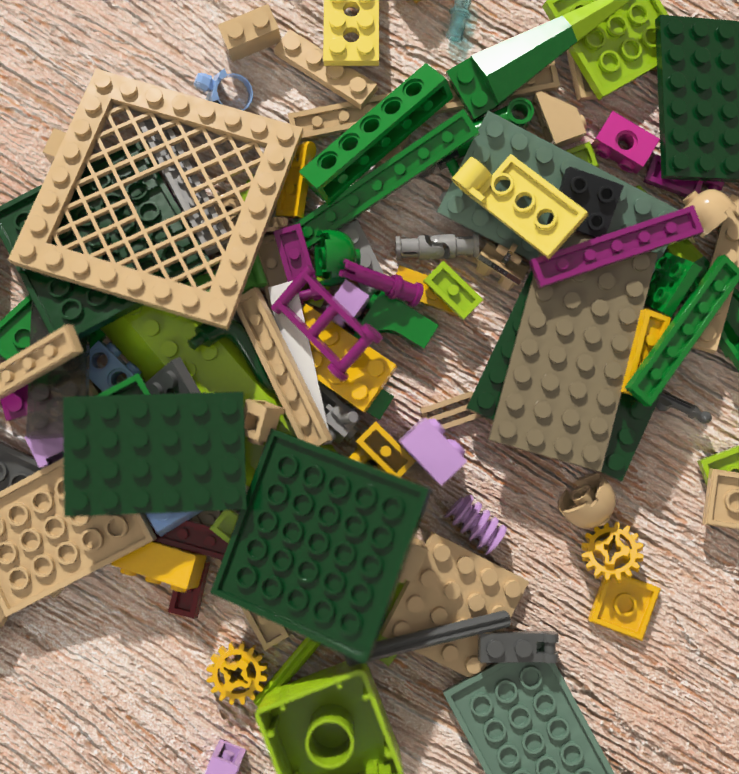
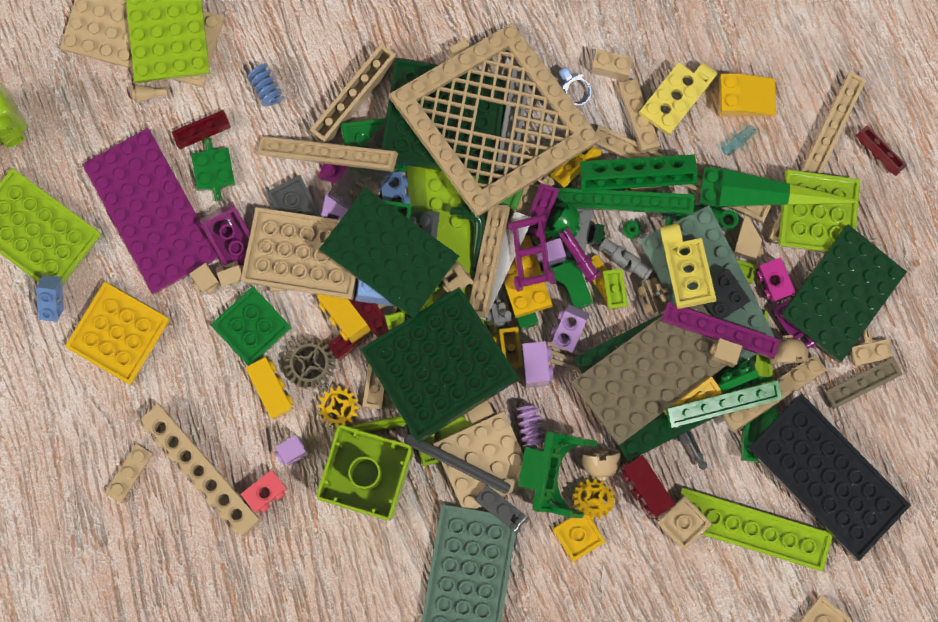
camera: 45 degrees right, 5 degrees down
(62, 656) = (251, 326): none -> green plate
(140, 712) = (270, 388): none -> yellow brick
(163, 634) = (306, 371): none -> dark tan gear
(381, 243) = (596, 234): none -> dark green plate
(417, 214) = (632, 234): none -> green plate
(440, 374) = (572, 329): none -> lavender brick
(533, 570) = (541, 471): none -> green piece
(643, 267) = (725, 352): none -> tan brick
(666, 494) = (646, 487): none -> dark red brick

